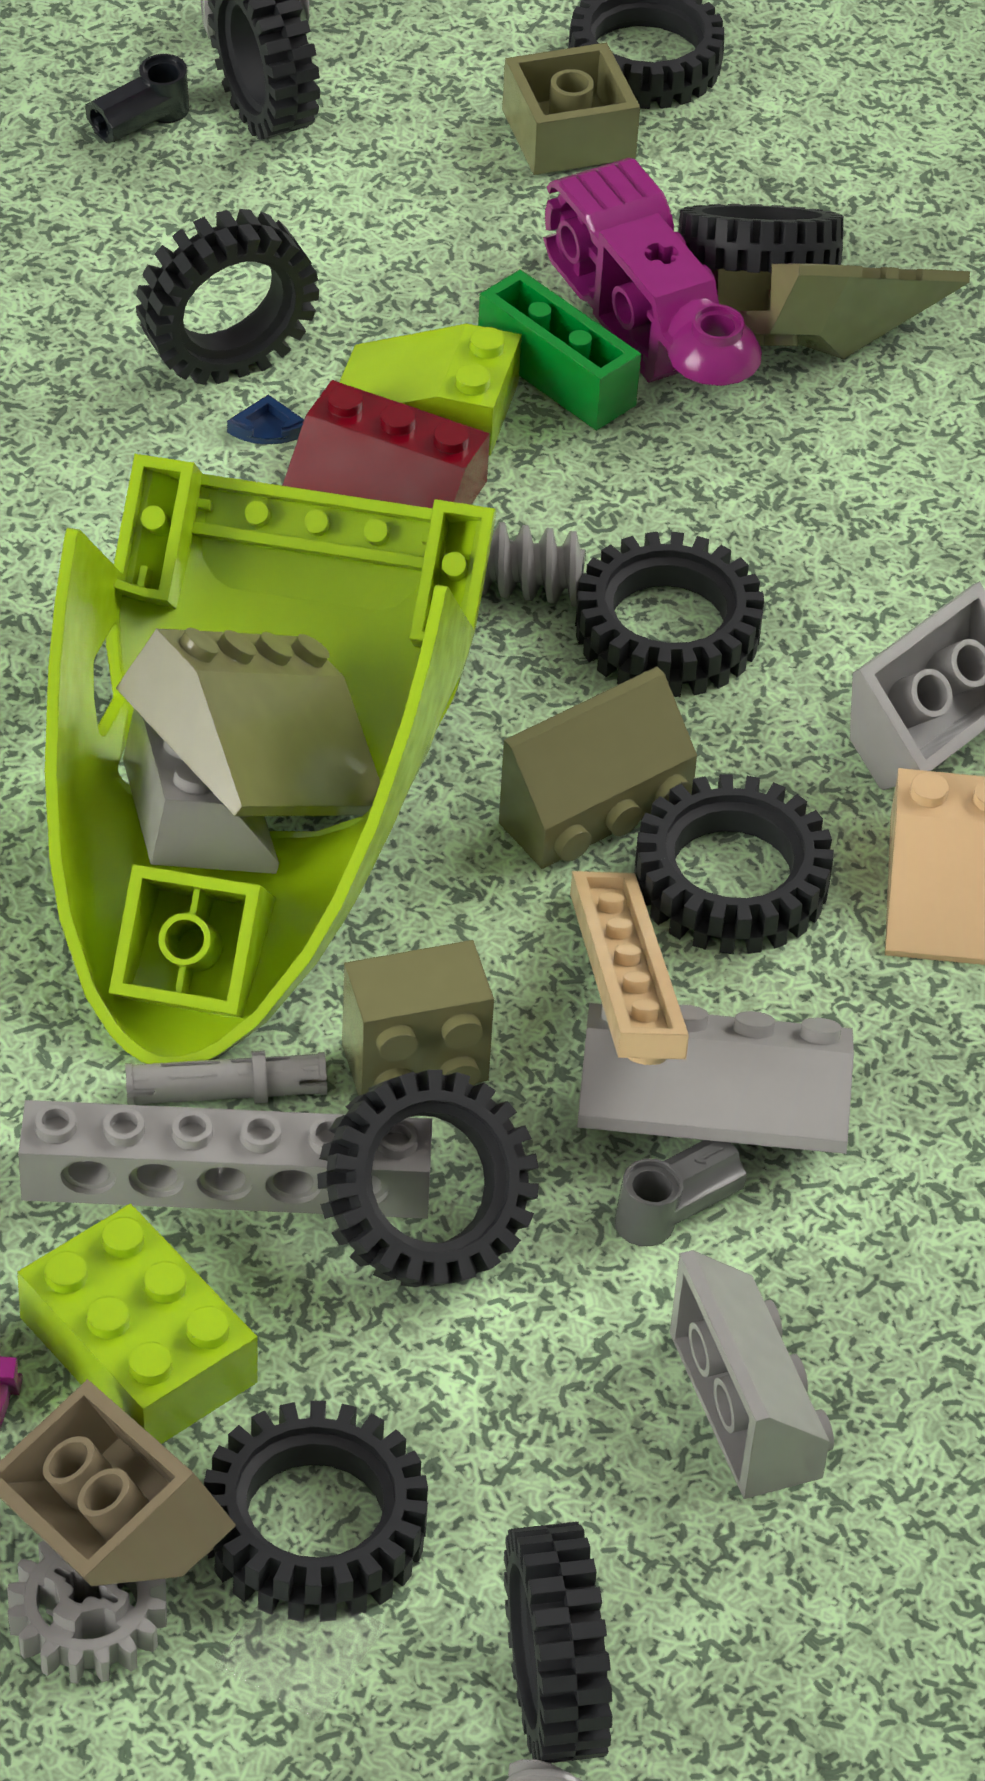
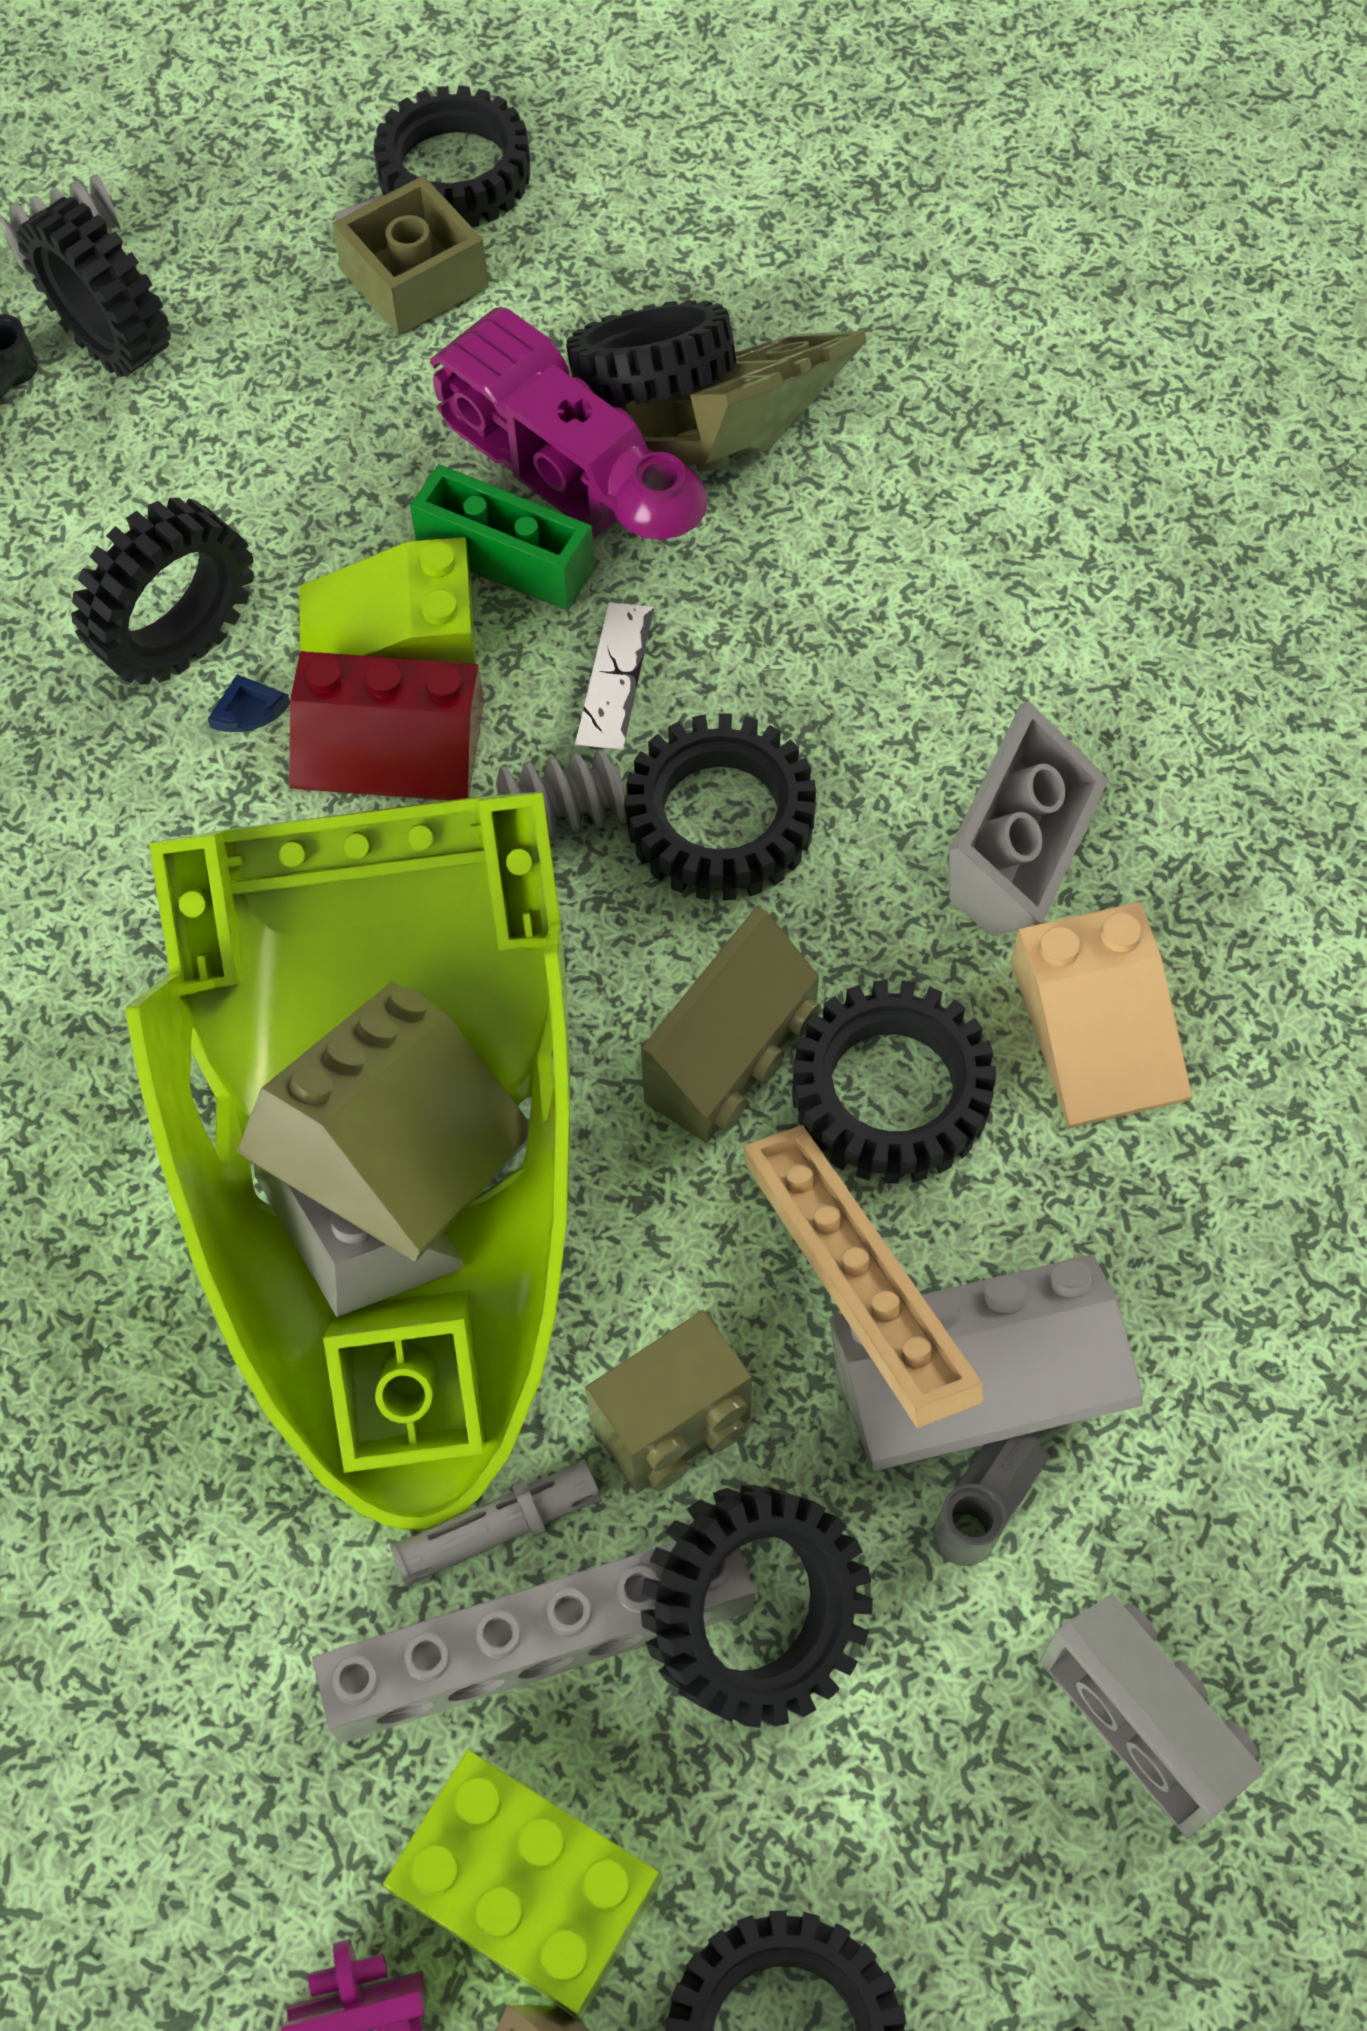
camera: 15 degrees left, 15 degrees up
(615, 486) = (615, 676): none -> white sticker

